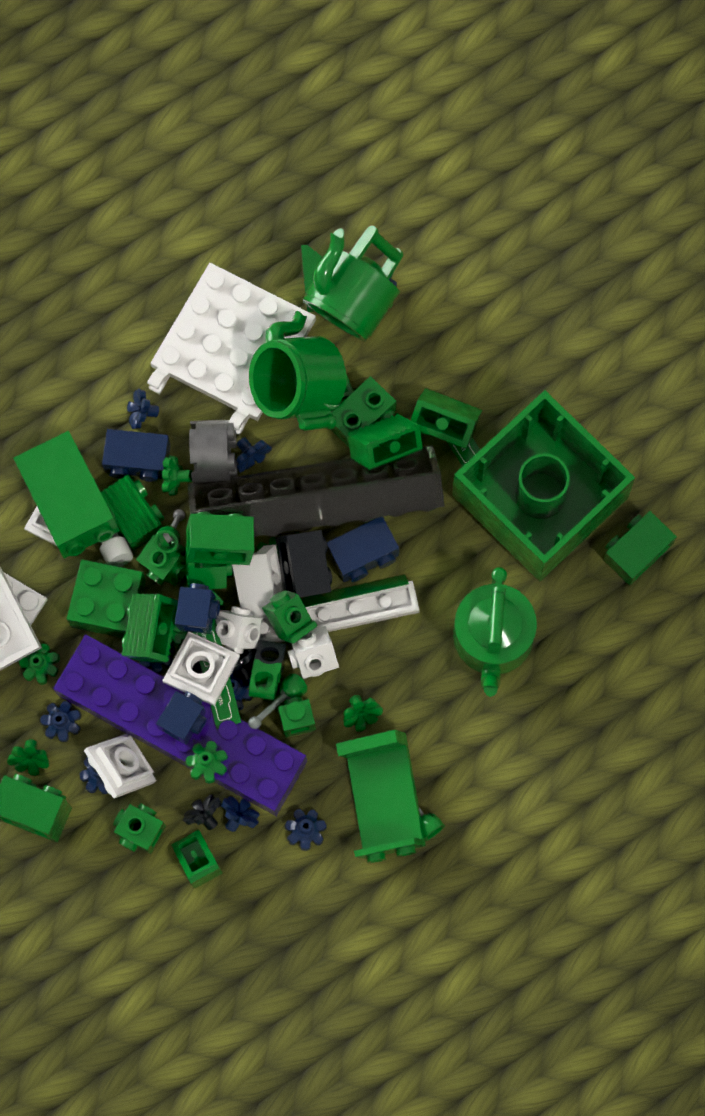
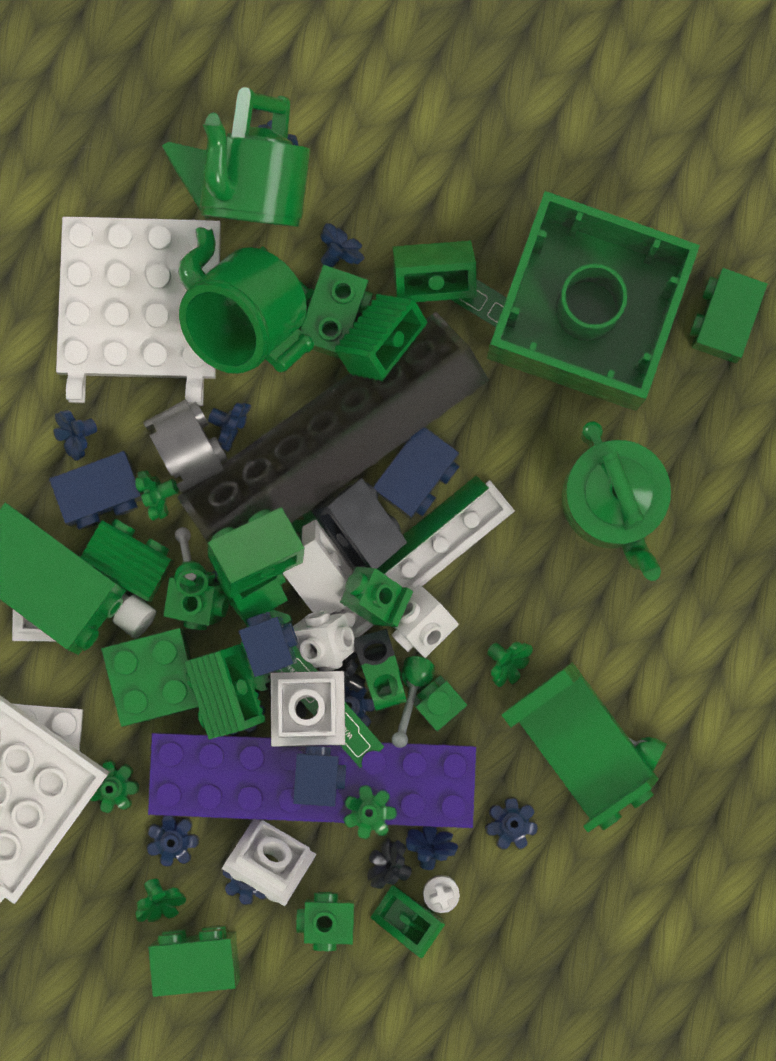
camera: 30 degrees left, 10 degrees up
(229, 851) = (441, 893): none -> white piece
(388, 372) = (339, 247): none -> dark blue plant

